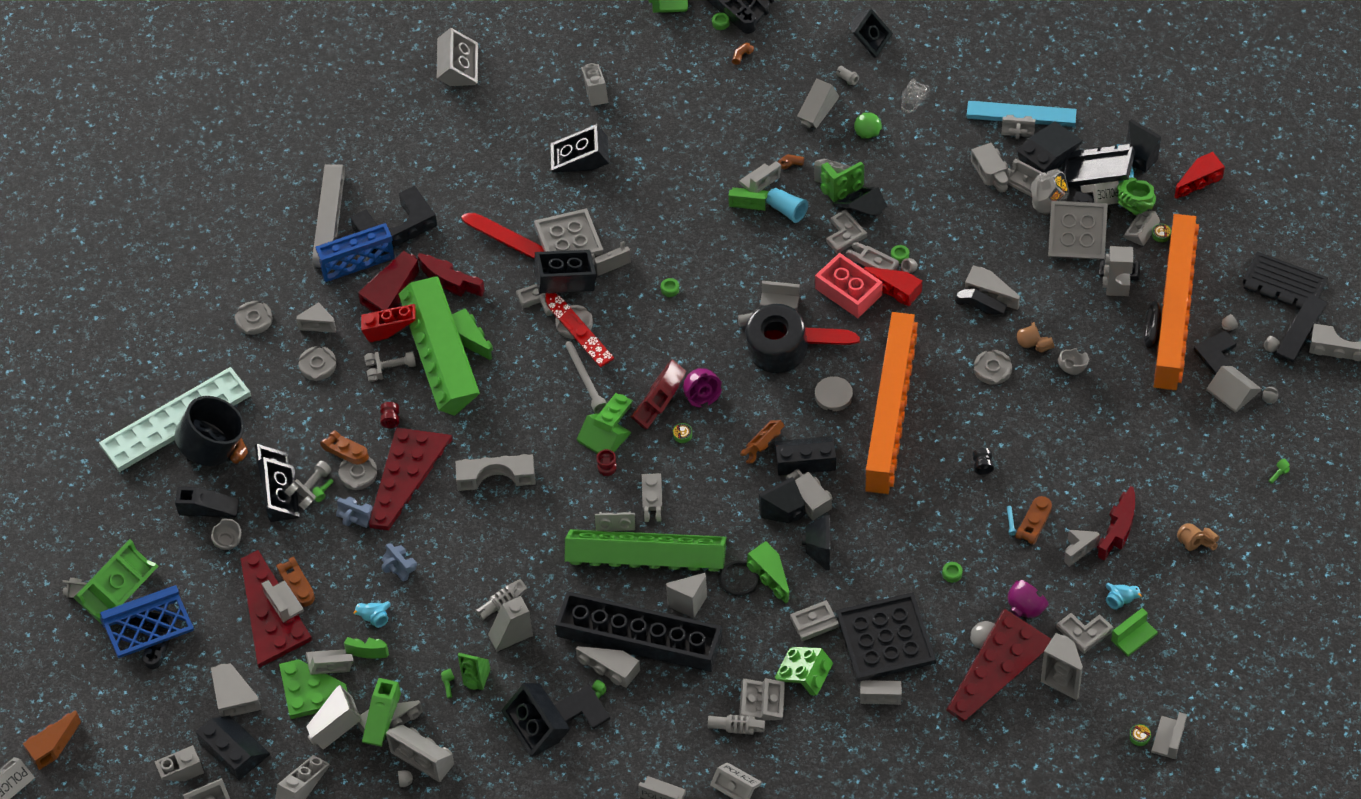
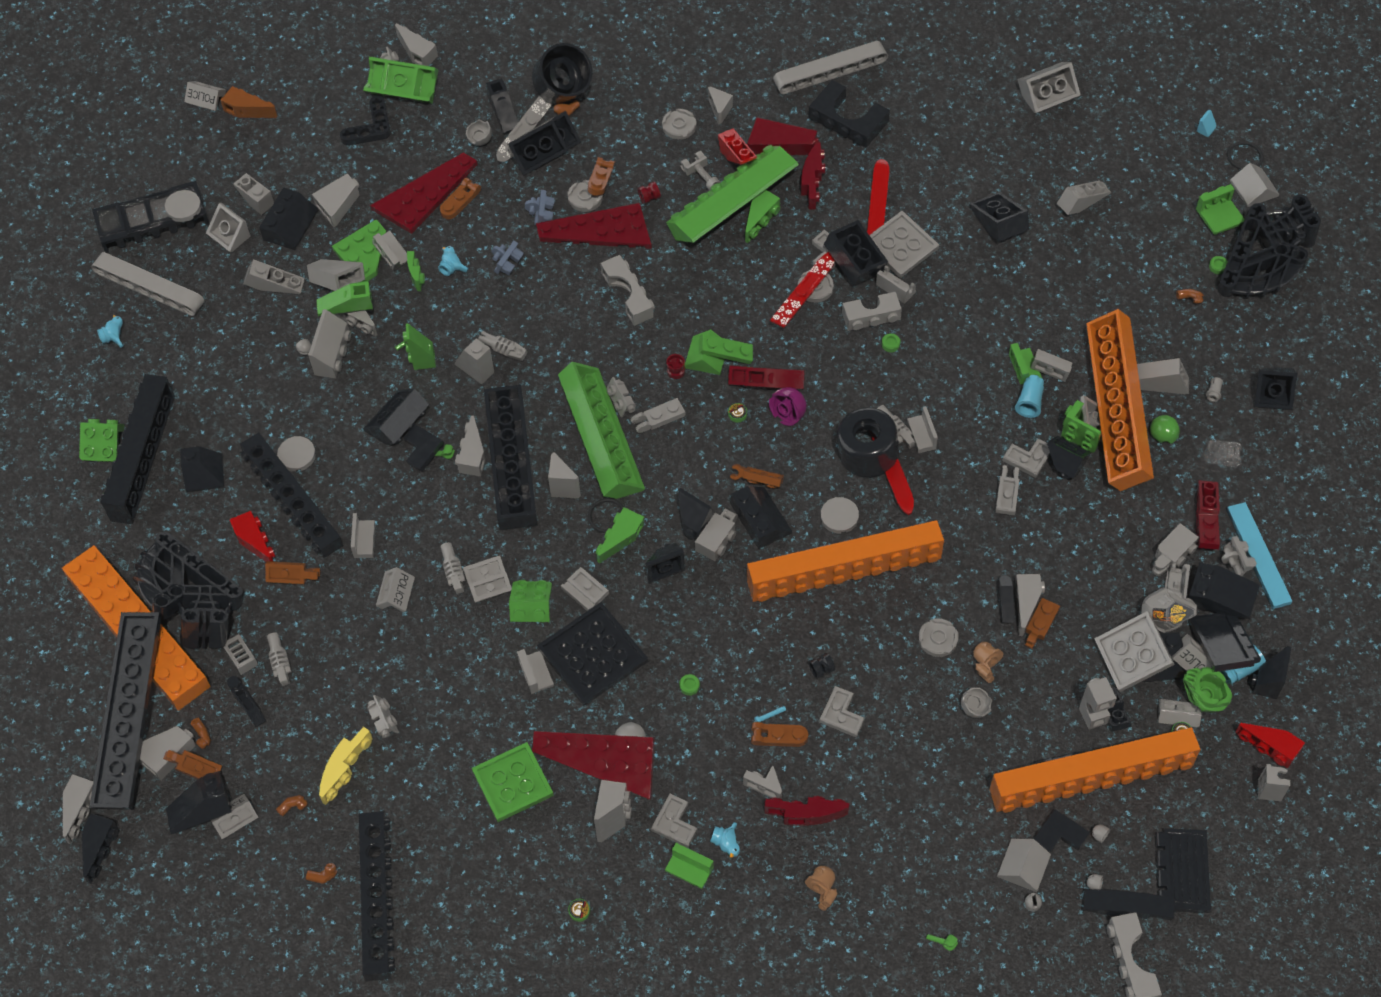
camera: 65 degrees right, 5 degrees up
(73, 558) = (418, 49): none -> light grey slope
(144, 606) = (379, 102): blue fence -> none
(159, 426) = (606, 66): light aqua plate -> none
(242, 497) = (525, 125): none -> light grey piece
(253, 317) = (702, 63): light grey tile -> none
(282, 600) = (430, 193): light grey panel -> none
(319, 492) = (550, 177): bright green hand -> none
(321, 469) = (571, 169): light grey bar -> none
(352, 246) = (800, 94): blue fence -> none
(598, 402) = (737, 335): light grey piece -> none
(629, 300) = (858, 316): none -> light grey arch
(789, 160) = (1085, 380): dark orange arm -> none
(828, 140) = (1119, 400): none -> orange brick
(848, 285) = (962, 479): coral brick -> none
(898, 284) = (989, 521): red slope -> none
(900, 253) = (1028, 511): bright green tile -> none
(909, 265) = (1017, 524): light grey hinge -> none
(965, 129) = (1207, 515): none -> dark red slope
(990, 746) = (512, 782): none -> bright green plate
(1017, 286) = (1041, 621): none -> dark orange plate
(1025, 601) = (676, 755): magenta cylinder -> none
(1033, 470) = (836, 713): none -> light grey tile
(1169, 736) = (588, 937): light grey panel -> none
(1238, 188) = (1270, 785): none -> light grey hinge

